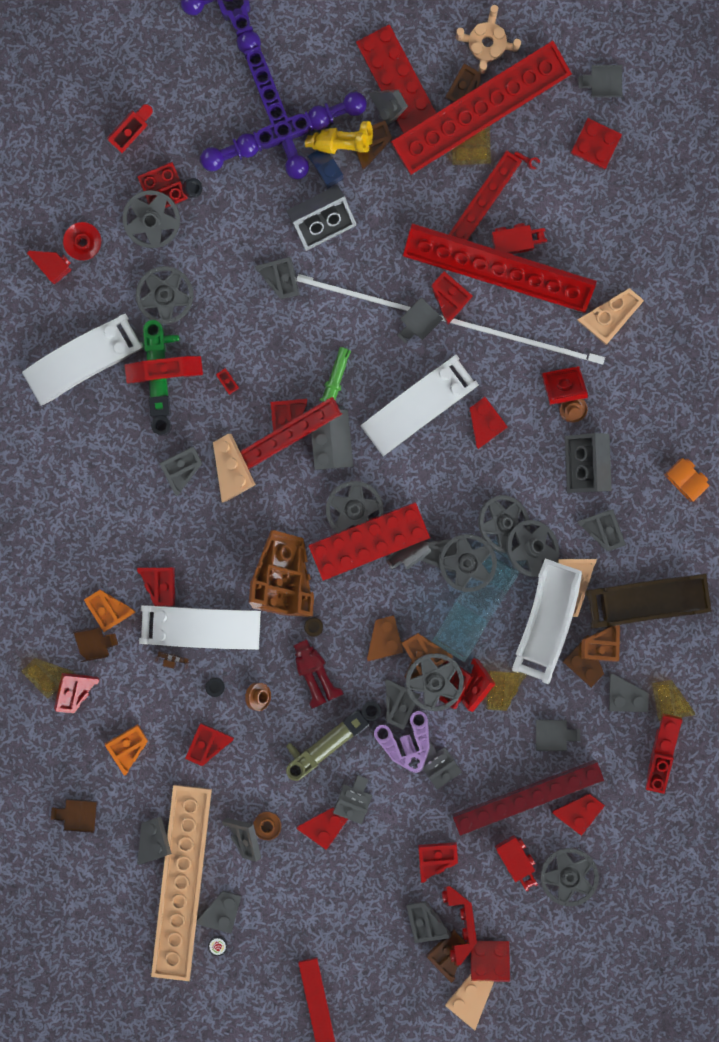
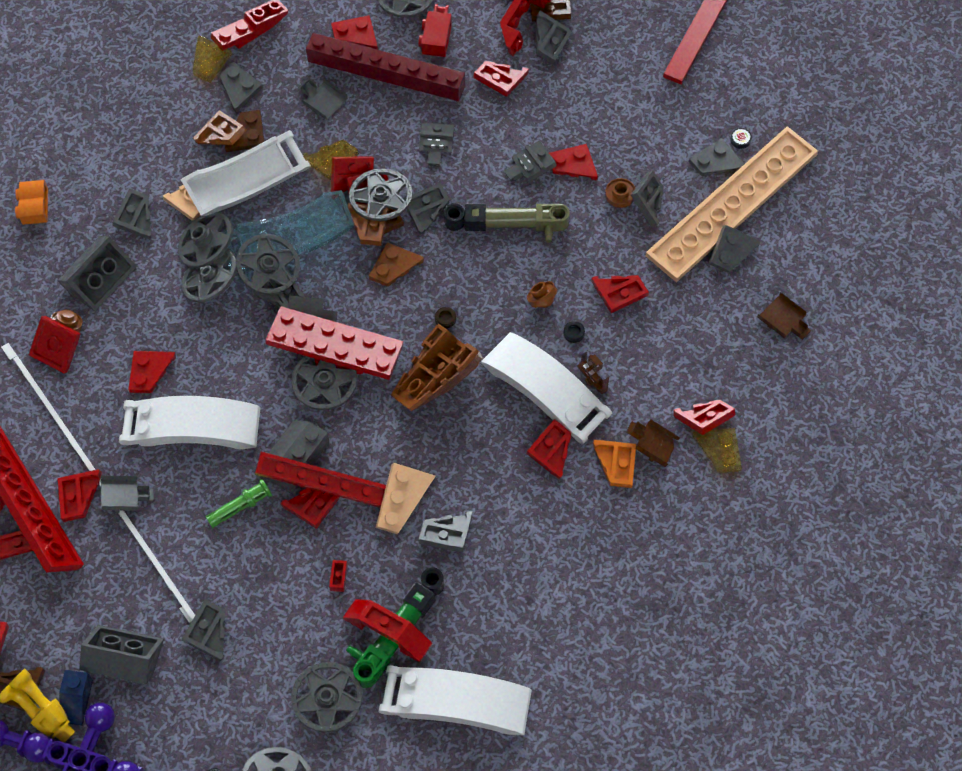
camera: 140 degrees left, 25 degrees down
(127, 747) = (693, 338): orange wing -> none
(308, 661) = (472, 289): dark red piece -> none
(422, 737) = (430, 165): lavender connector -> none
(650, 600) = (150, 135): dark brown windscreen -> none

